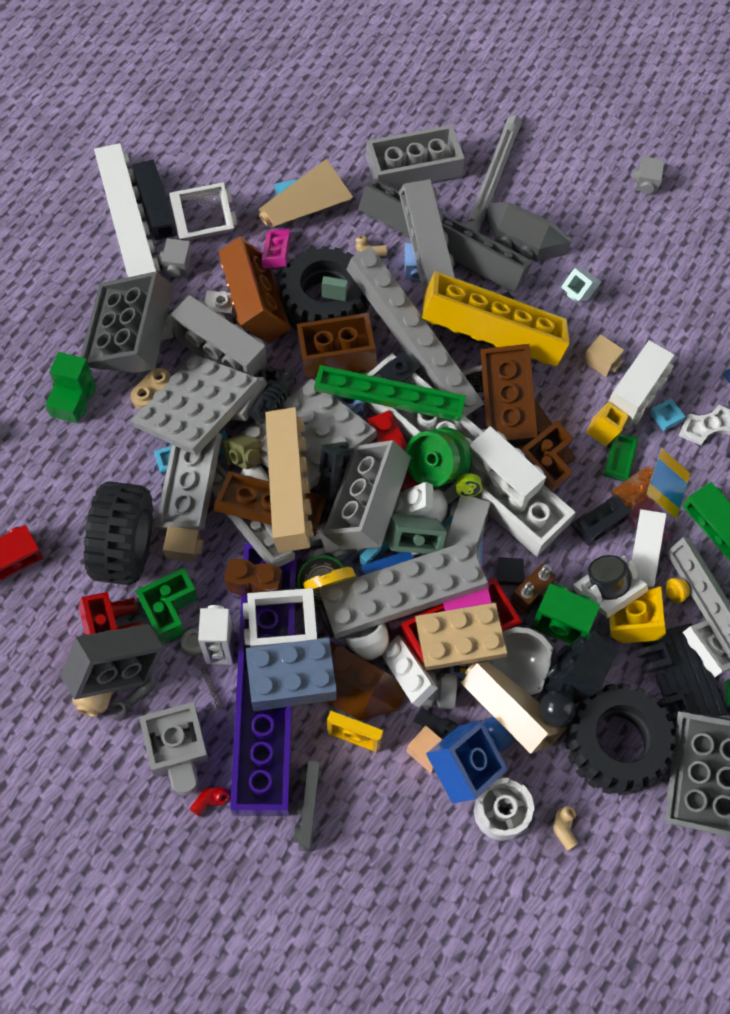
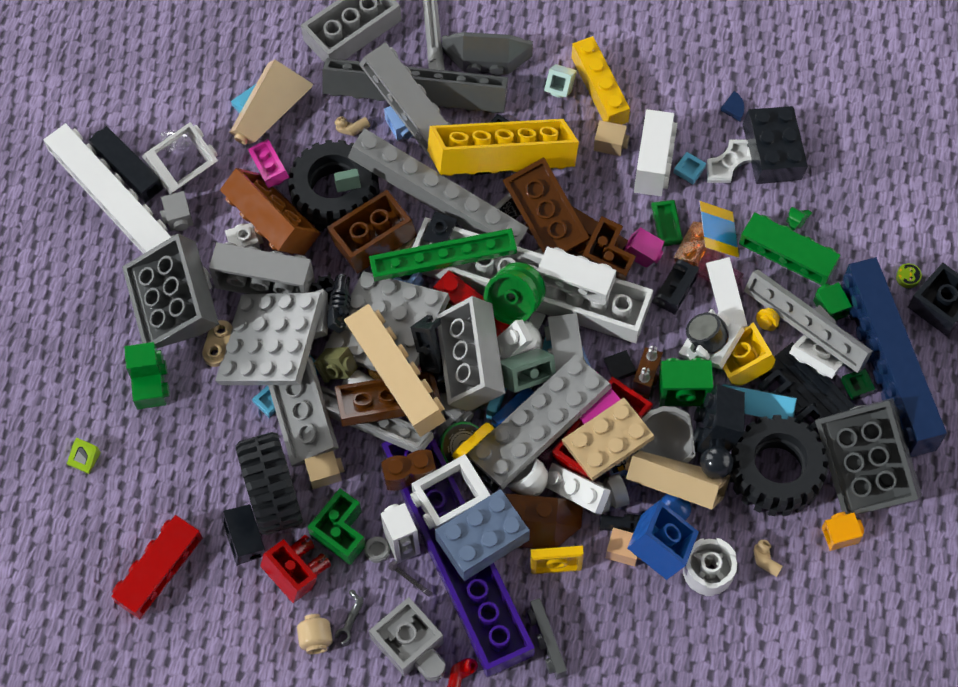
camera: 20 degrees left, 0 degrees up
(75, 580) = (243, 534): none -> black hinge
(111, 661) = (321, 594): dark grey brick -> none
(468, 485) = (551, 306): lime tile -> none
(587, 470) = (645, 247): none -> dark pink brick
(607, 424) = (642, 199): yellow brick -> none
(618, 300) = (600, 81): none -> yellow brick
(636, 672) = (766, 404): none -> medium azure tile
(656, 835) = (842, 530): none -> light orange brick

